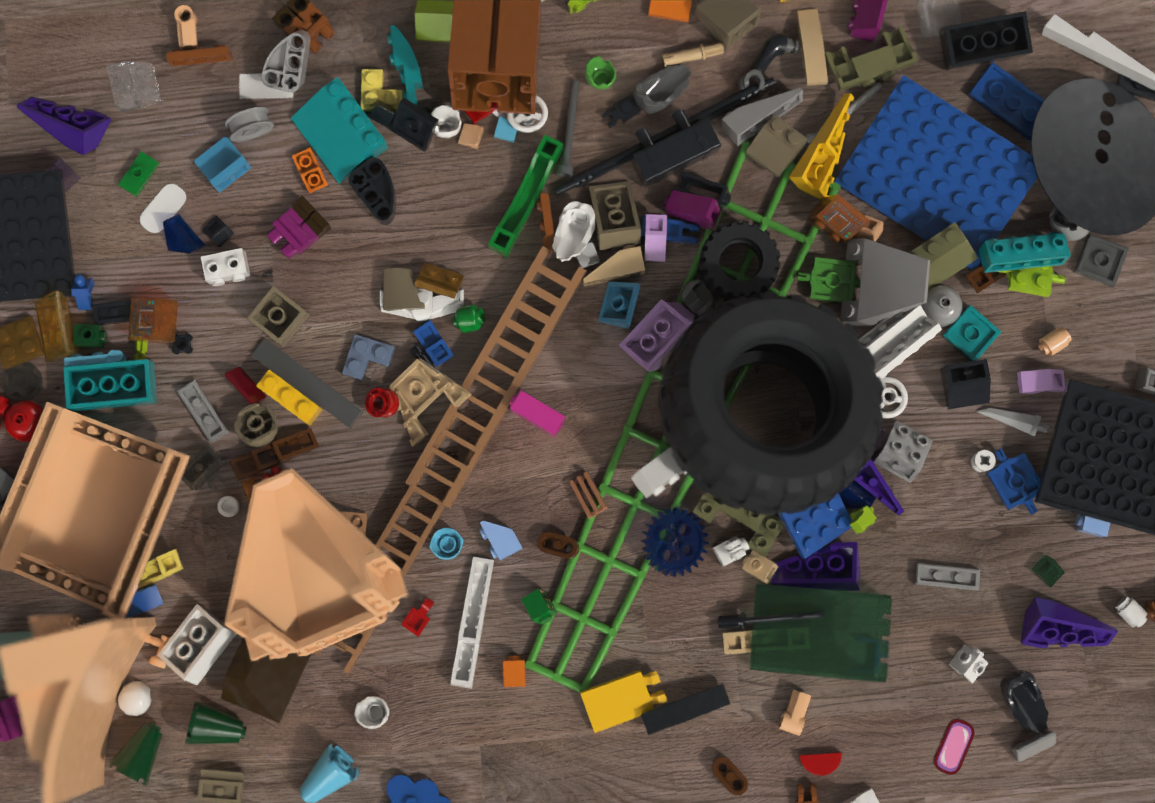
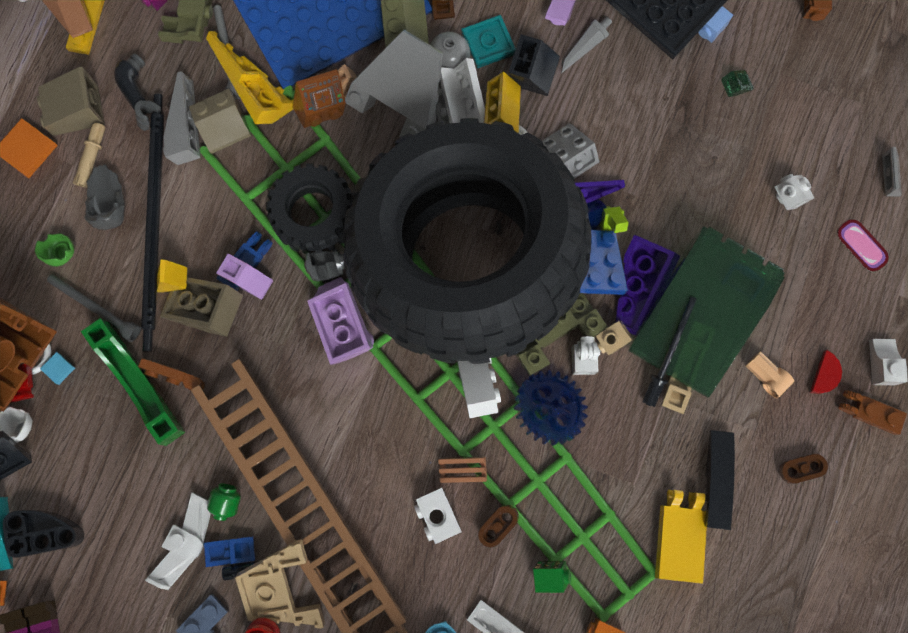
camera: 65 degrees left, 5 degrees down
(400, 290) = (156, 559): dark tan slope -> none
(439, 280) = (168, 513): pearl gold plate -> none
(471, 135) = (43, 406): light nougat slope -> none
(501, 538) = (464, 581): light blue slope -> none
(529, 120) = (62, 343): white piece -> none
(536, 413) = (355, 481): dark pink brick -> none
(540, 505) = (449, 525): none -> white brick
(573, 230) = (192, 351): white hair -> none
(588, 257) = (225, 352): light grey slope -> none
(619, 304) = (290, 344): dark azure slope -> none
(621, 265) = (253, 320): tan slope -> none
(624, 110) = (105, 244): black plate -> none
(624, 178) = (171, 276): none -> yellow slope
(674, 152) = (171, 215): black piece -> none
(689, 179) = (219, 205): black window -> none
(693, 209) = (236, 226): magenta slope -> none
(812, 47) = (147, 45): tan slope -> none
(831, 280) = (373, 135): bright green plate -> none
(912, 375) = (503, 101): none -> yellow brick
(947, 576) = (702, 173): light grey tile -> none
(978, 463) = (606, 92): white wheel -> none
(1015, 481) = (643, 69): blue plate -> none
(1025, 700) = (849, 160): black hair -> none
(1054, 623) = (790, 98): dark purple wedge -> none
(1131, 611) = (808, 30): white brick -> none

